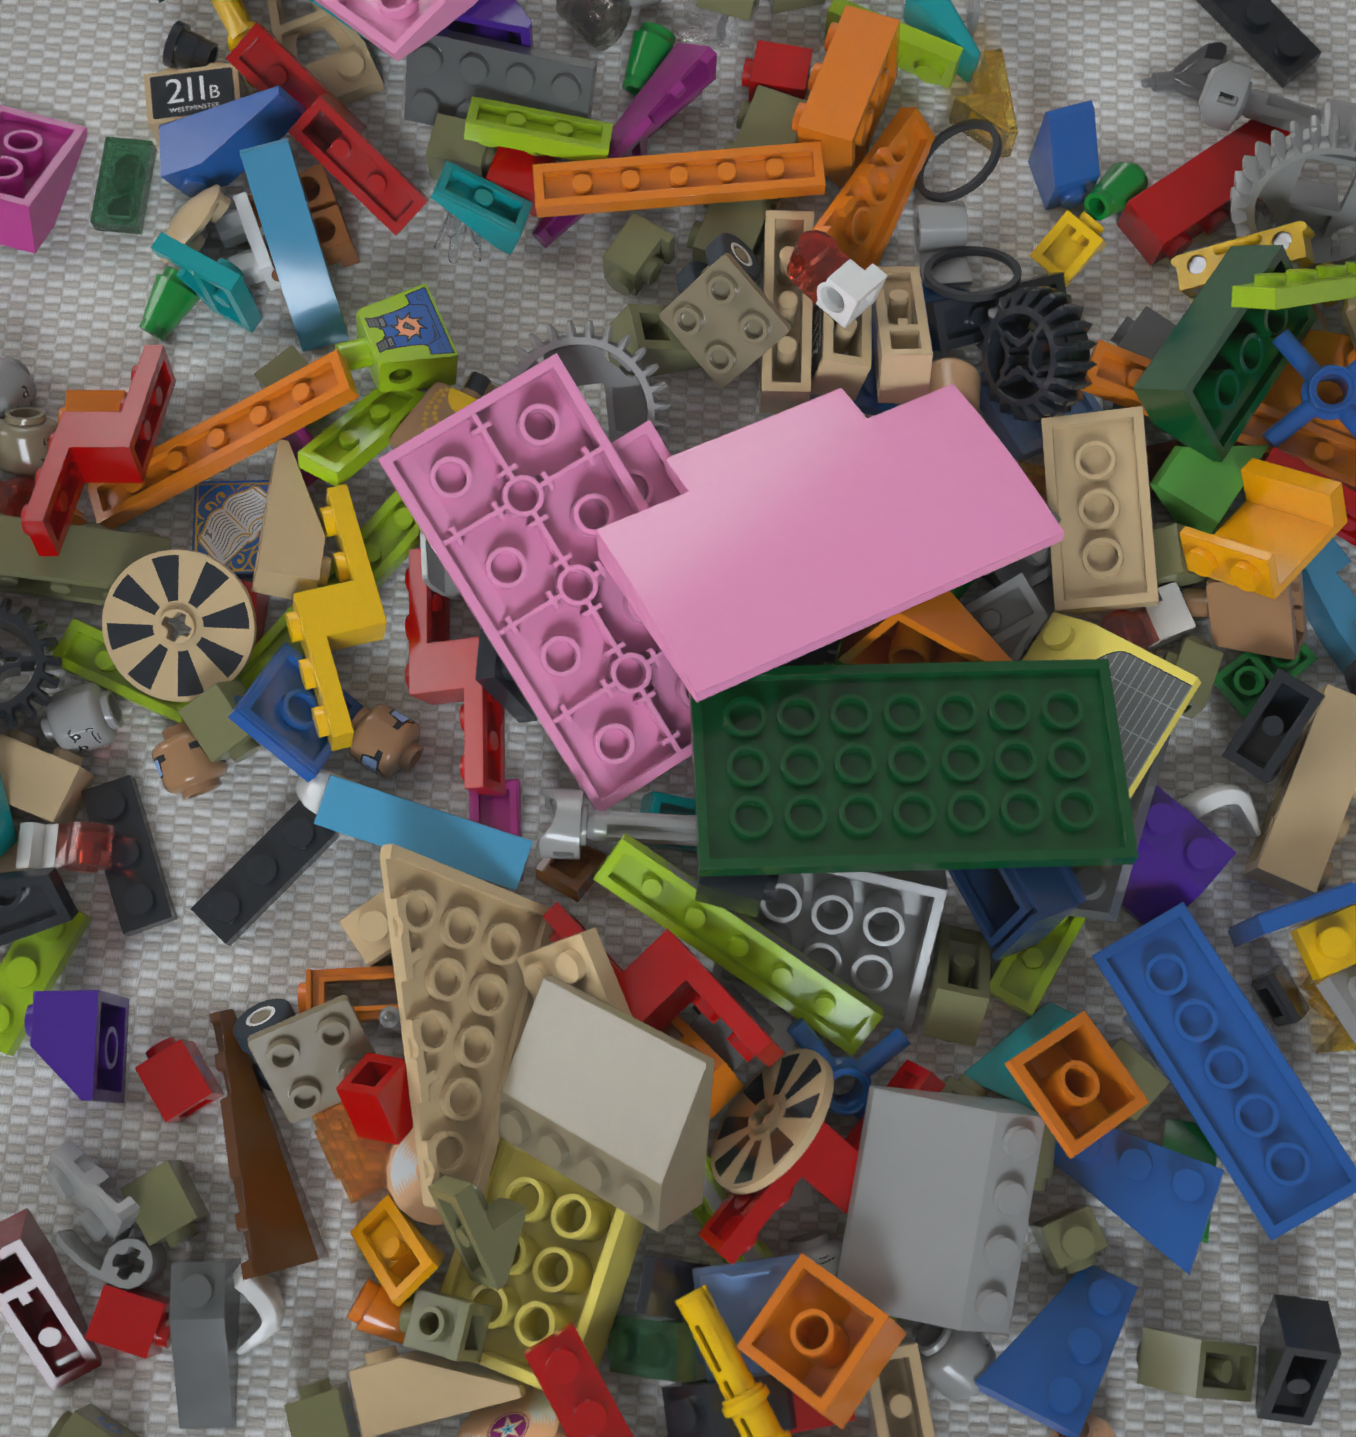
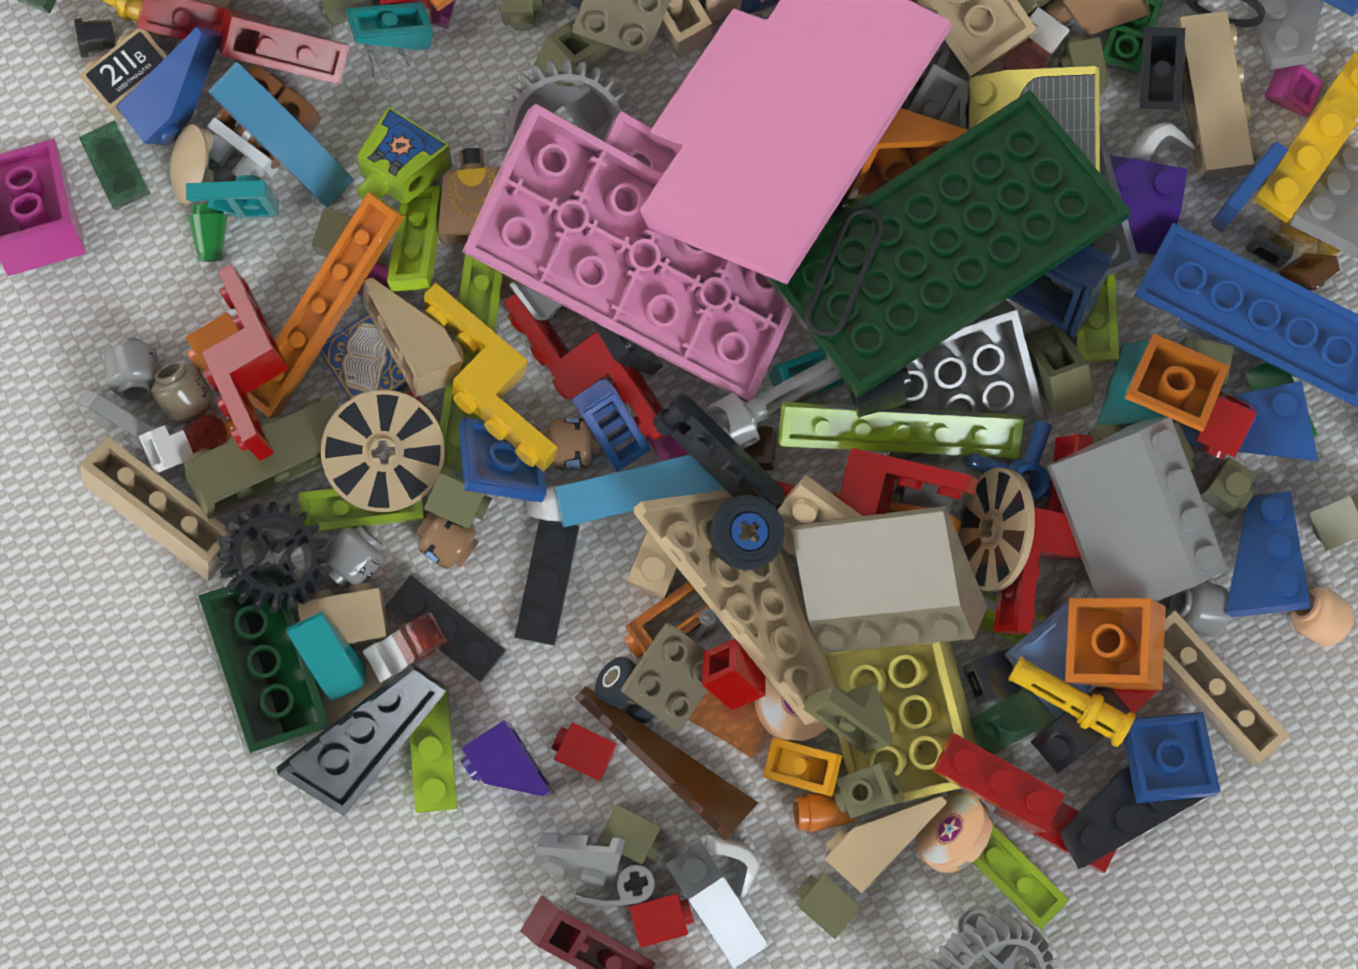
camera: 30 degrees left, 5 degrees up
(433, 714) = (598, 403): none -> blue slope
(474, 973) = (726, 531): none -> black bush
(522, 850) = (716, 451): none -> black plate
(785, 748) = (841, 324): none -> black piece
(1106, 1168) = (1227, 426): none -> red brick
(1310, 1051) = (1311, 270): none -> reddish brown plate

